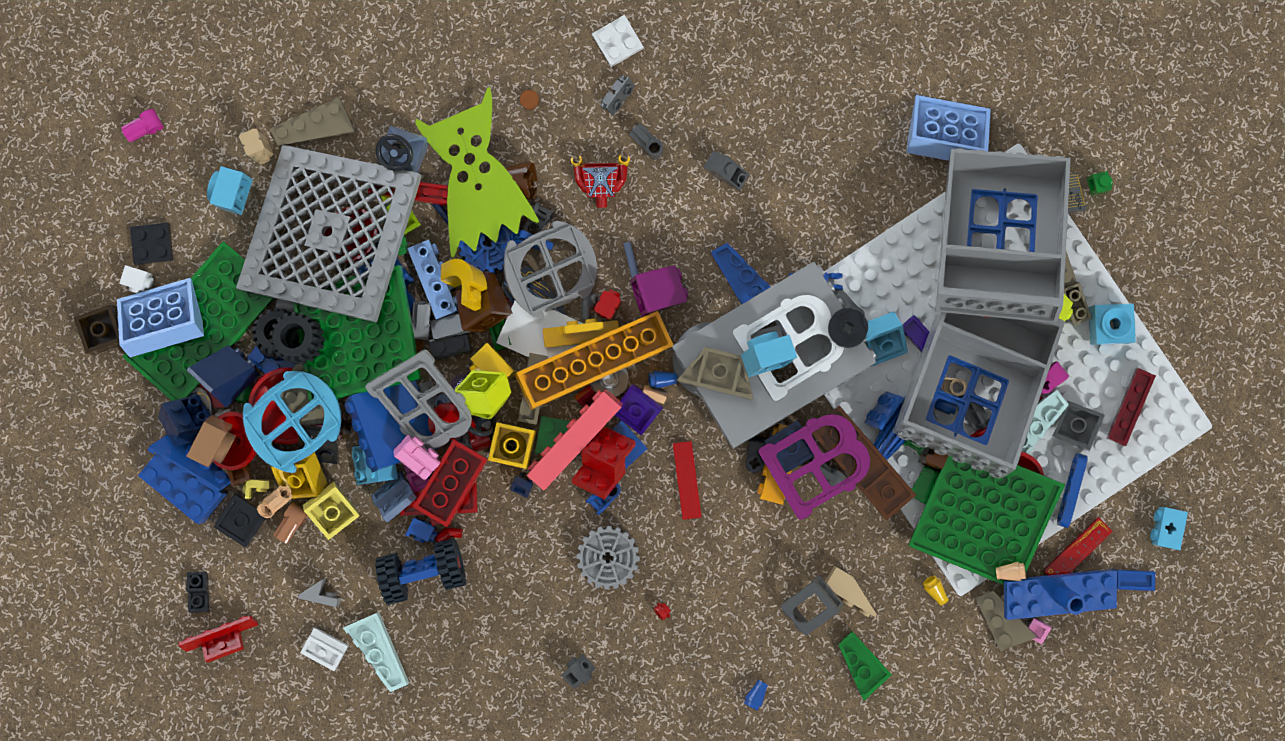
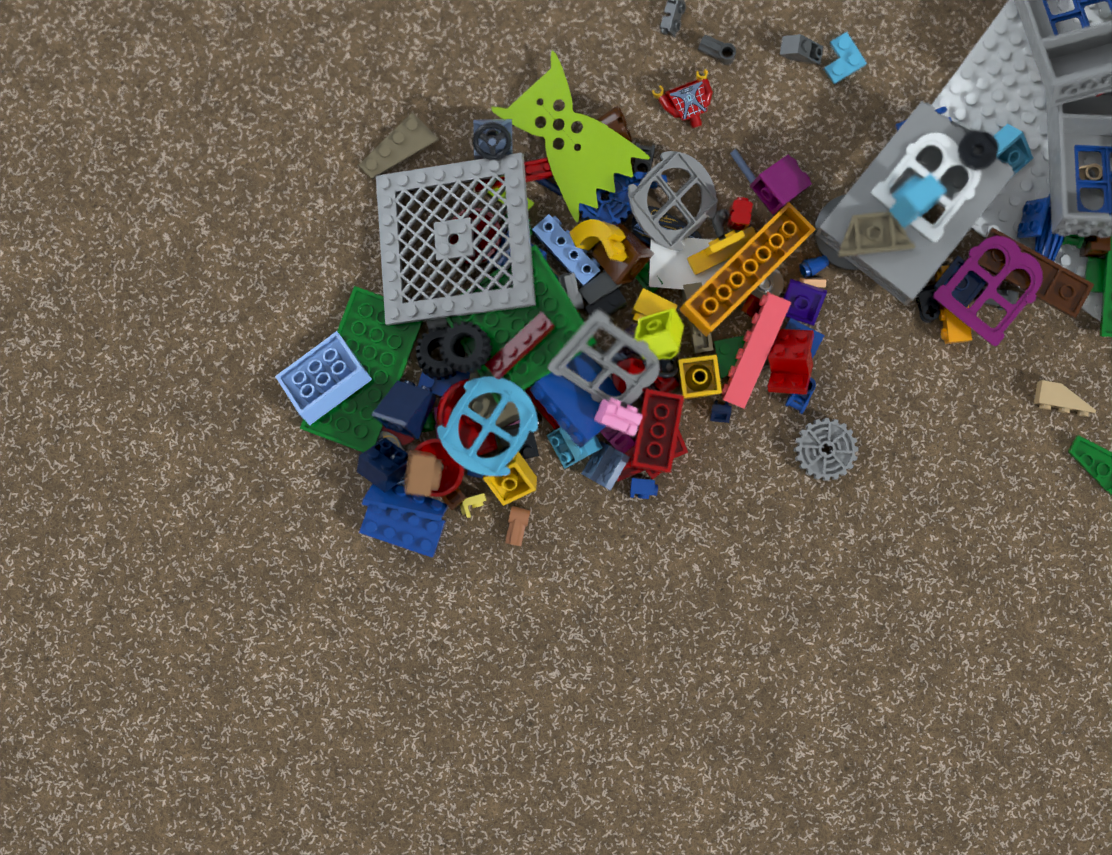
camera: 25 degrees left, 0 degrees up
(99, 329) = (271, 409): dark brown brick -> none
(136, 279) = (286, 351): white brick -> none
(146, 124) = (239, 202): dark pink piece -> none
(151, 243) = (286, 313): black plate -> none
(198, 591) = (453, 623): black slope -> none
(221, 640) = (492, 660): red bracket -> none
(229, 190) = (343, 235): medium azure piece -> none
(240, 521) = (469, 541): black plate -> none
(256, 146) = (354, 184): tan brick -> none
(274, 501) = (496, 510): light nougat piece -> none
(316, 595) = (564, 583): light grey slope -> none
(324, 649) = (592, 632): white plate -> none
(331, 510) = (552, 499): light yellow brick -> none
(348, 355) = (520, 345): none -> plate
(375, 643) = (636, 608): light aqua wing -> none
(394, 576) = (679, 509): black plate -> none
(447, 533) = (666, 483): red arm -> none
(529, 99) = (591, 50): dark orange tile -> none
(578, 671) = (838, 565): dark grey brick -> none
(662, 611) = (894, 481): red plate -> none
(687, 480) = (871, 351): red tile -> none
(739, 275) = (851, 144): blue wing -> none
(756, 695) = (1011, 527): blue cone -> none
(769, 196) = (849, 59): none -> medium azure plate
(824, 593) = (1033, 403): dark grey panel -> none
(916, 332) = (1035, 137): dark purple tile -> none
(945, 406) = (1089, 194): blue cone -> none

